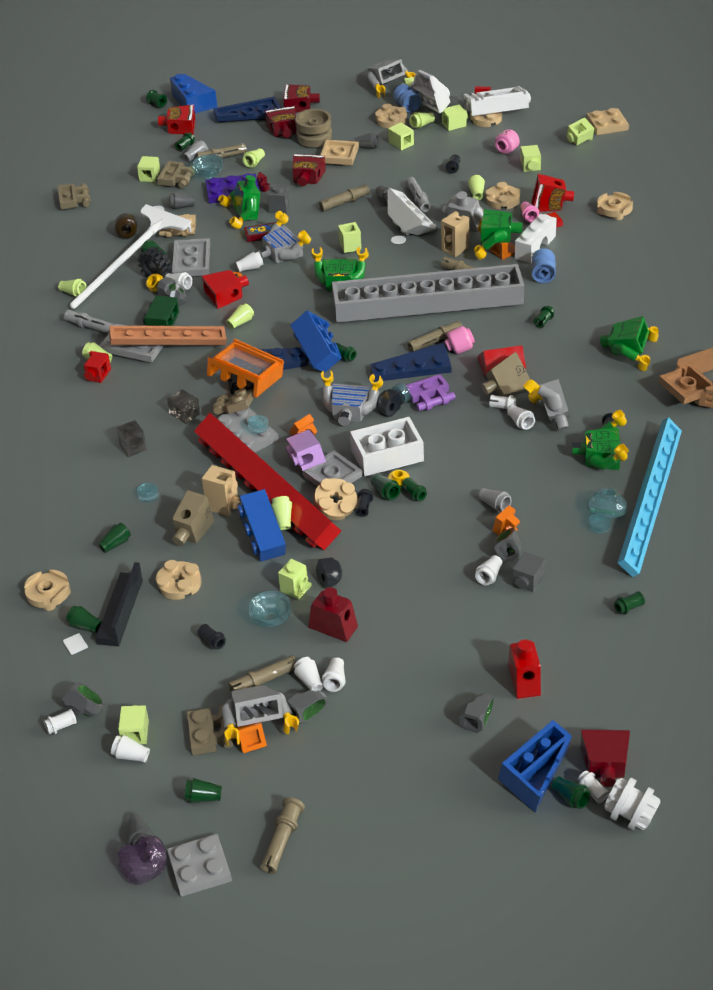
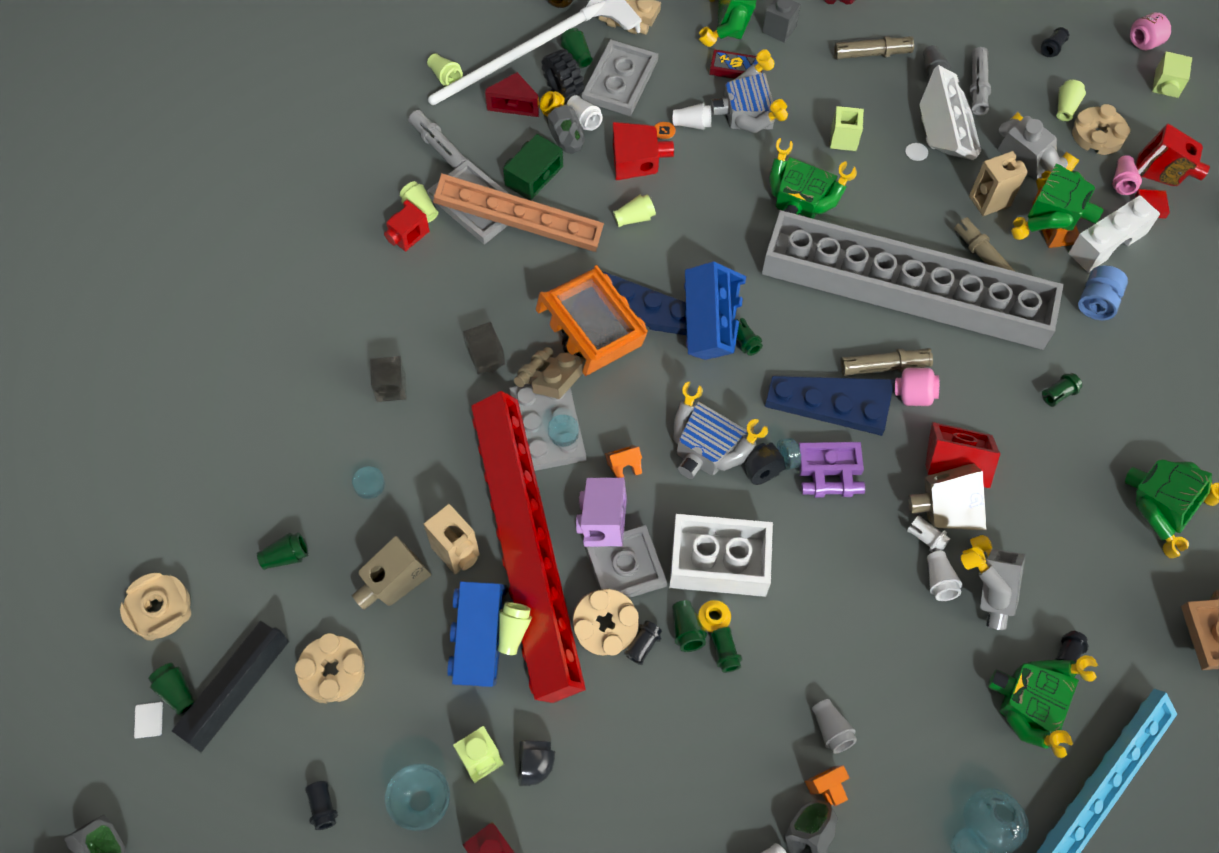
camera: 20 degrees right, 20 degrees up
(128, 286) = (512, 96): none -> dark red slope

